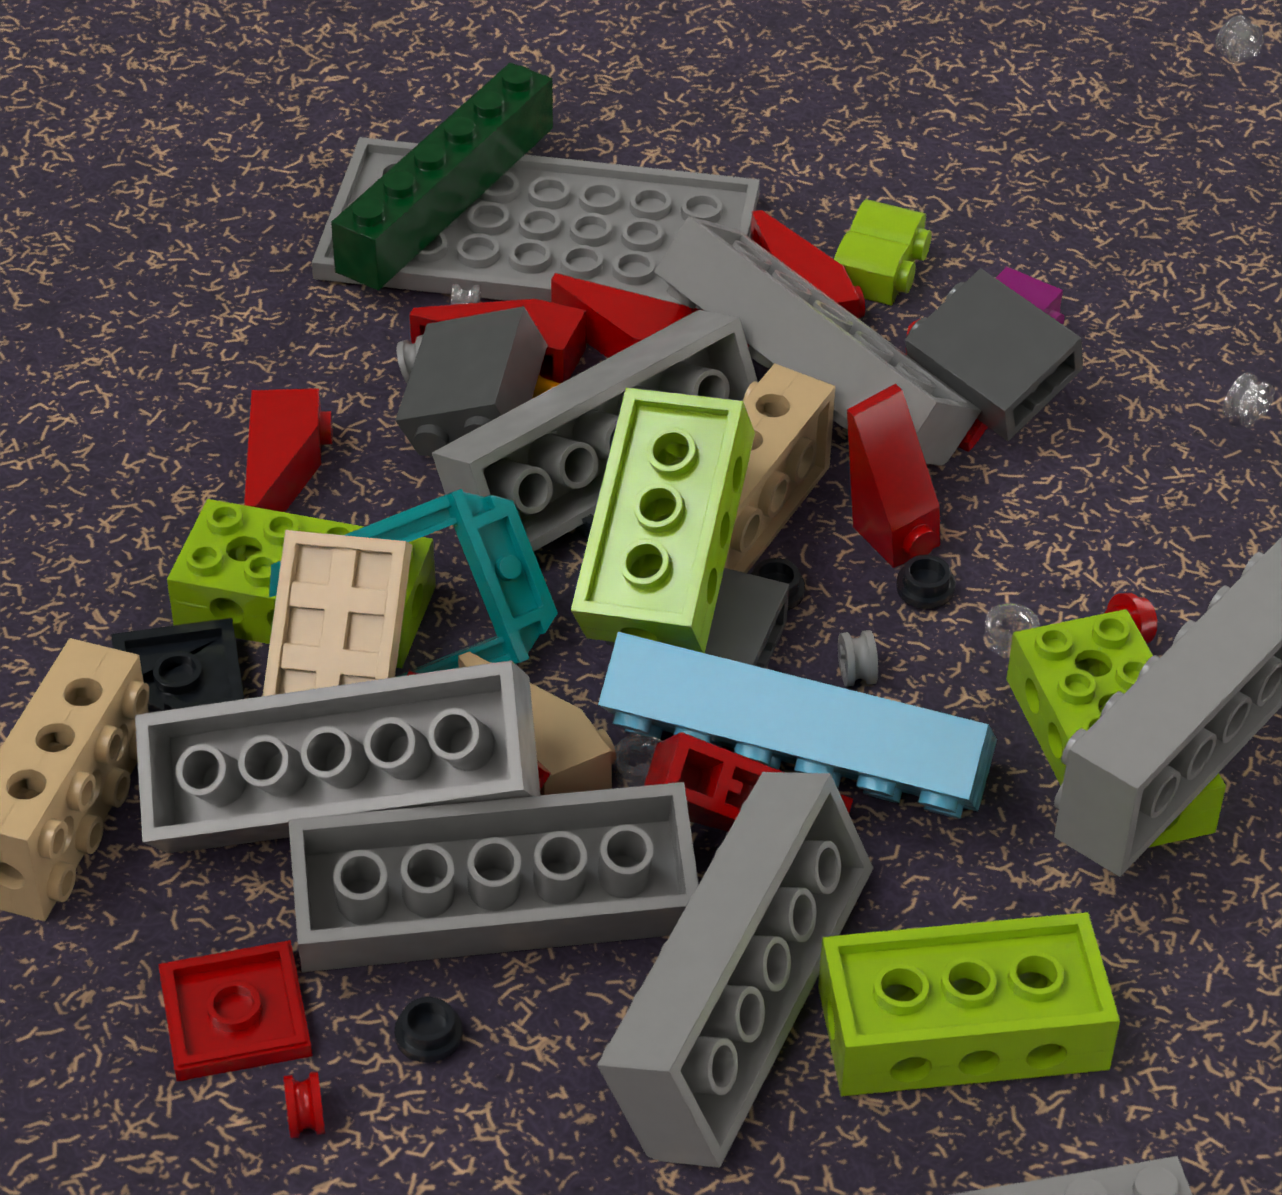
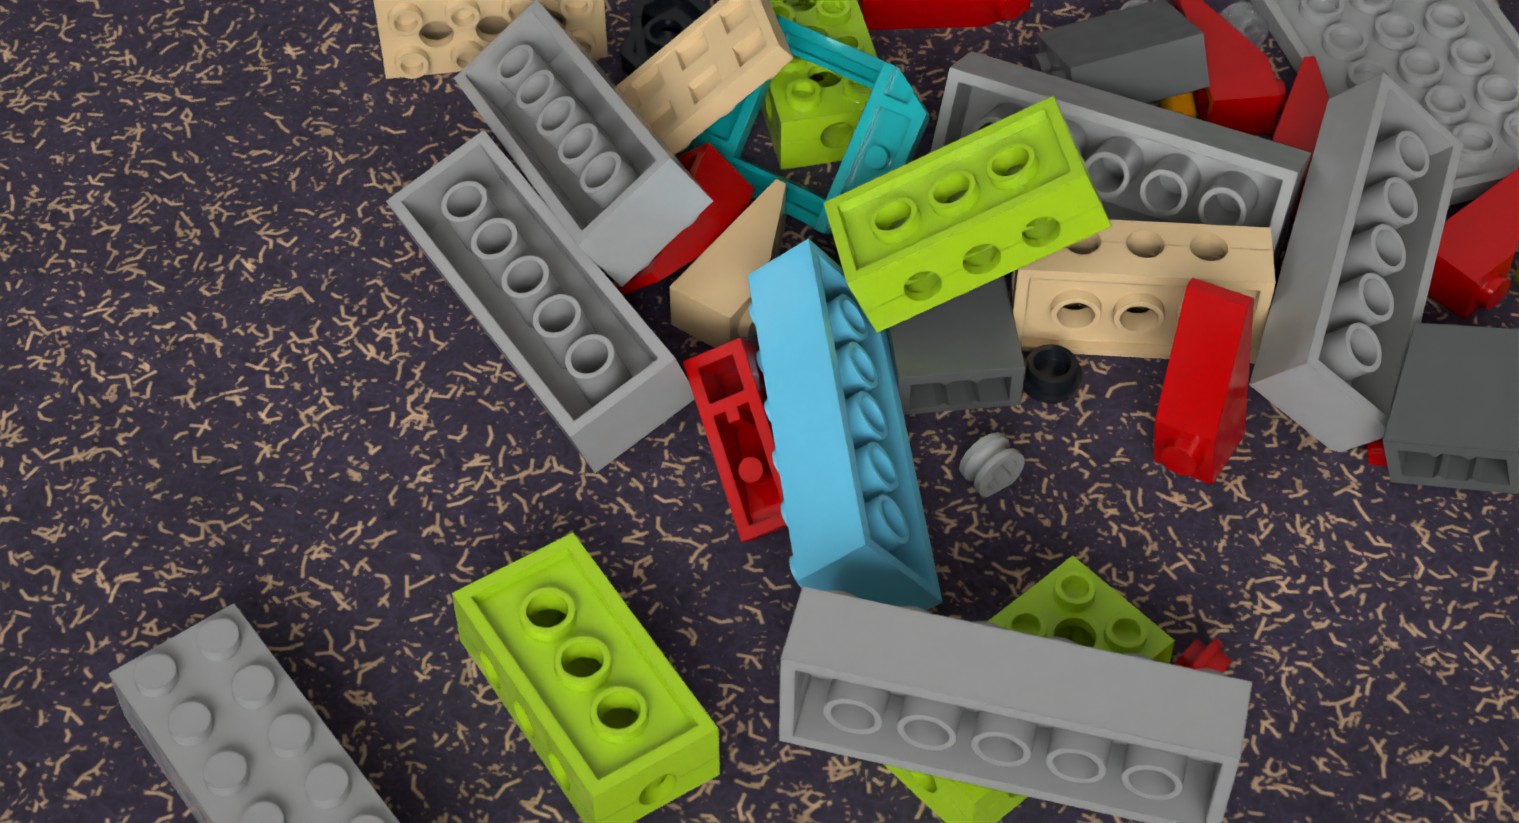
camera: 65 degrees right, 5 degrees up
(234, 1010) = (343, 215): red tile -> none
(304, 1104) = (266, 286): red bush -> none
(428, 1030) = (385, 334): black plate -> none
(736, 970) = (507, 484): light grey brick -> none
(926, 582) = (1140, 486): black plate -> none
(1006, 616) = (1124, 559): clear bush -> none

